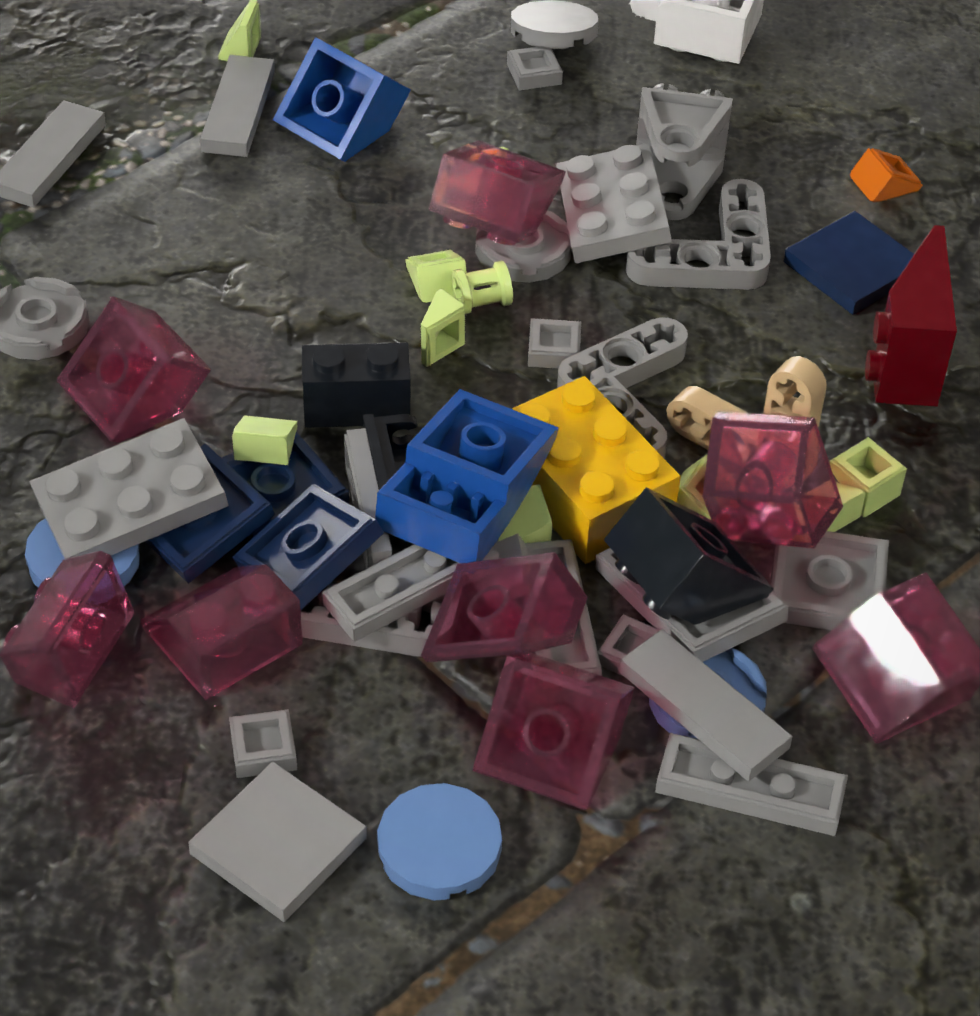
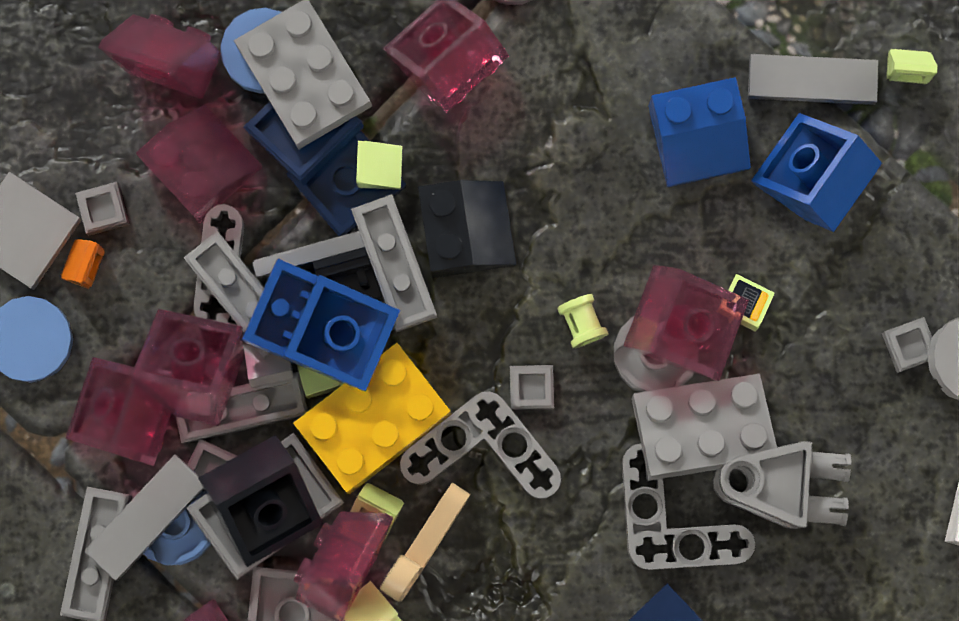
camera: 90 degrees right, 35 degrees up
(278, 179) = (700, 132): none -> blue slope
(311, 542) = (264, 214): dark blue tile -> none
(338, 762) = (83, 263): none -> orange slope
(382, 411) = (394, 262): none -> light grey tile
(434, 272) = (608, 281): yellowish green slope -> none
(442, 328) = (525, 291): yellowish green slope -> none

